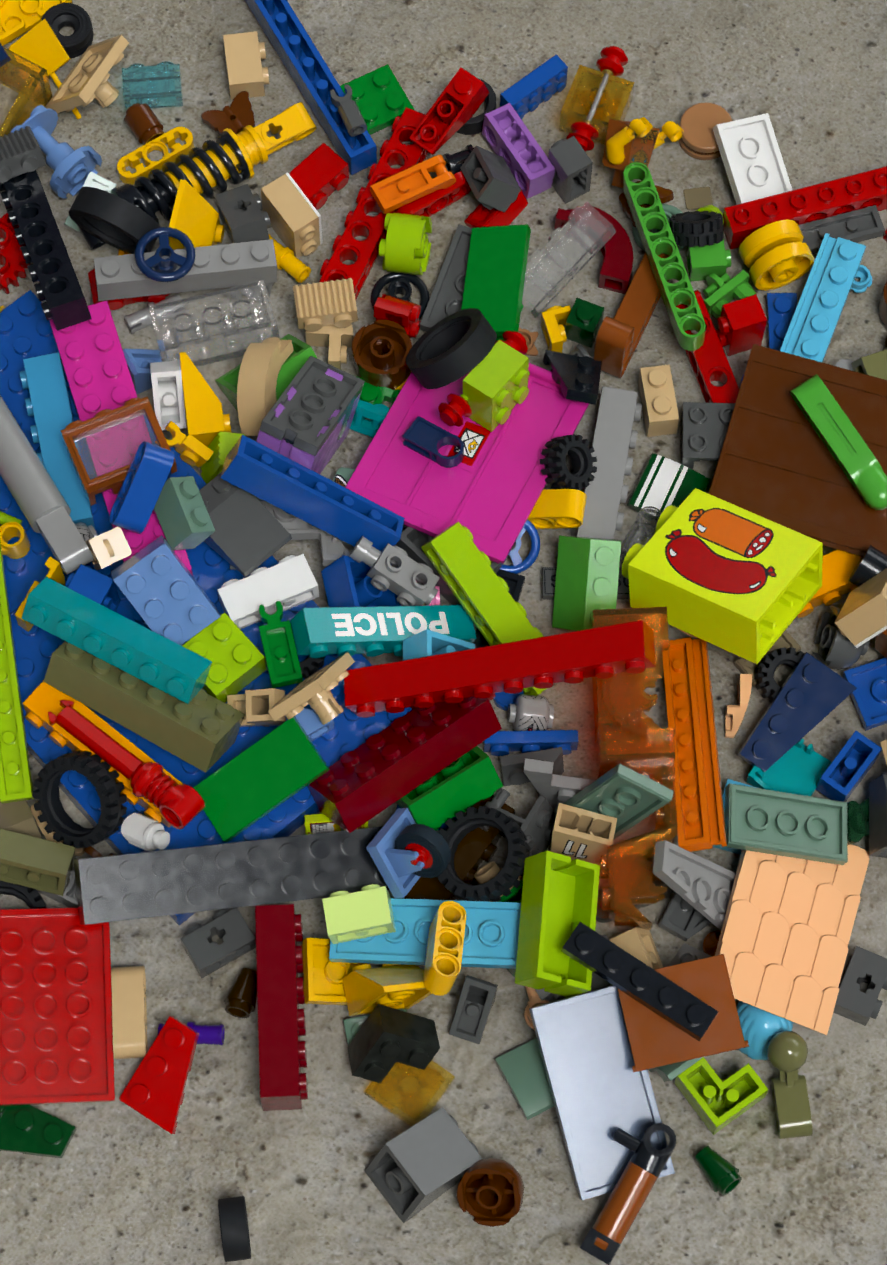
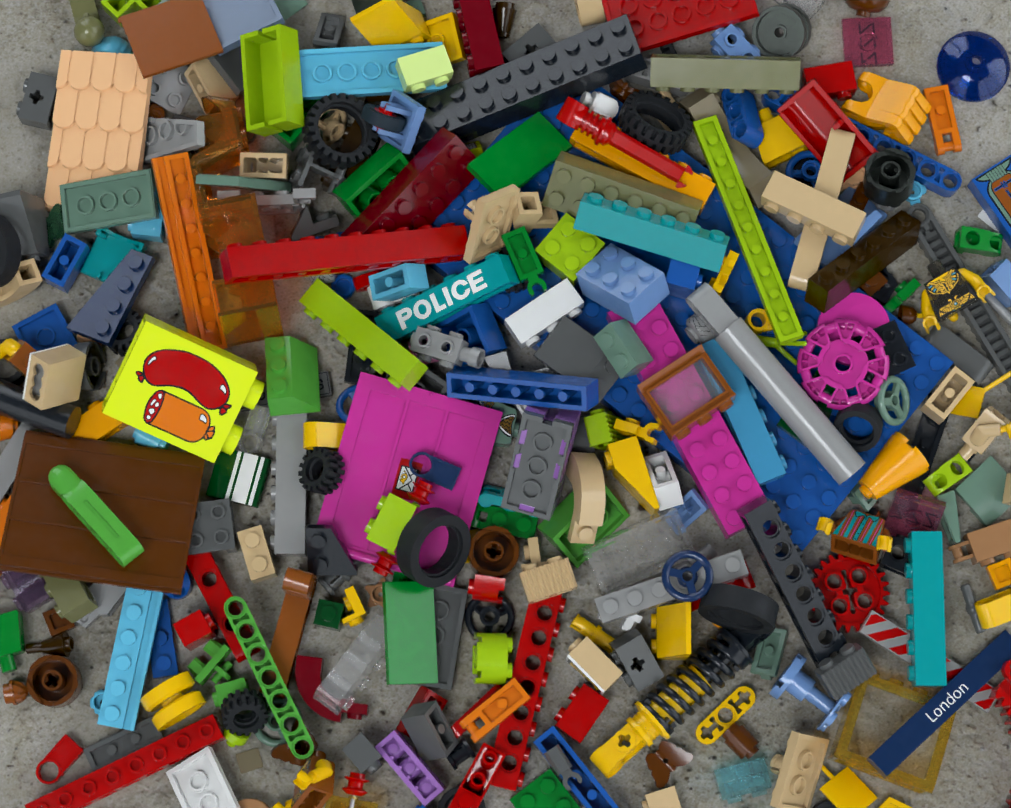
camera: 170 degrees right, 10 degrees up
(108, 548) = (679, 310): slope -> none
(141, 487) = (658, 354): blue beam -> none
(444, 948) = (347, 53): yellow beam -> none
(639, 981) = (204, 45): black plate -> none
(735, 713) = (160, 297): light nougat slope -> none

